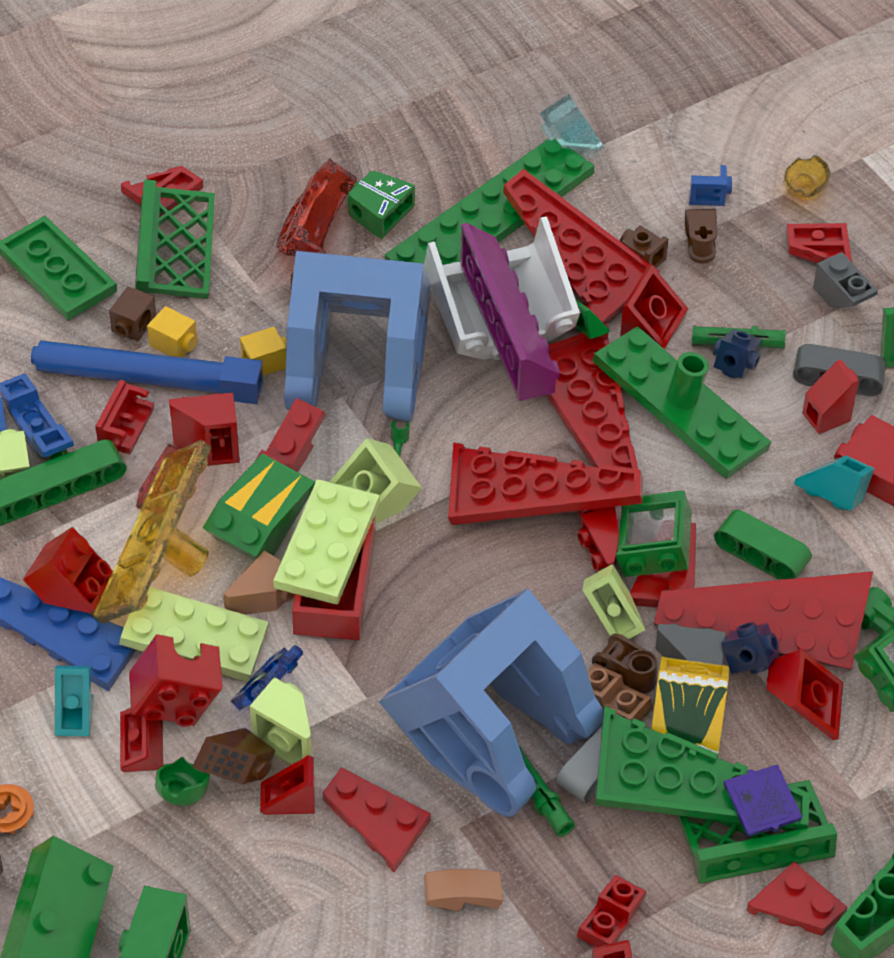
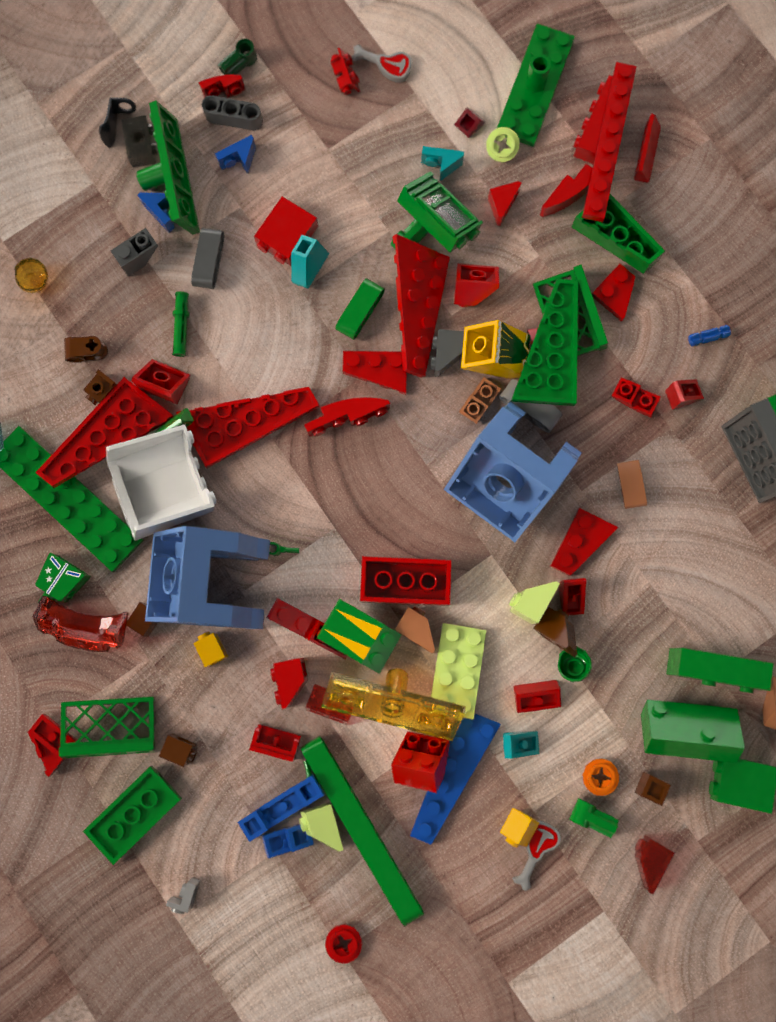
camera: 90 degrees left, 30 degrees up
(172, 333) = (196, 717): yellow brick -> none
(173, 687) = (512, 675): red piece -> none
(234, 375) = (230, 729): blue brick -> none
(276, 666) = (491, 622): clear blue plate -> none
(326, 541) = (393, 585): yellowish green plate -> none
(380, 471) = (325, 561): yellowish green slope -> none
(507, 314) = (183, 476): magenta slope -> none
(525, 484) = (325, 468): red wing -> none
(548, 803) = (577, 429): green pin -> none
(613, 603) = (415, 401): yellowish green slope -> none
(628, 660) = (456, 395): reddish brown piece -> none
(655, 535) = (362, 375): green window -> none
(681, 400) = (241, 361): green plate -> none
(710, 189) = (43, 344): blue bracket -> none
(737, 353) = (200, 323): dark blue brick -> none
(750, 648) = (448, 314): dark blue brick -> none
(762, 800) = (567, 305): dark purple piece -> none
(818, 240) = (92, 268): red wing -> none
(831, 398) = (239, 261): red slope -> none

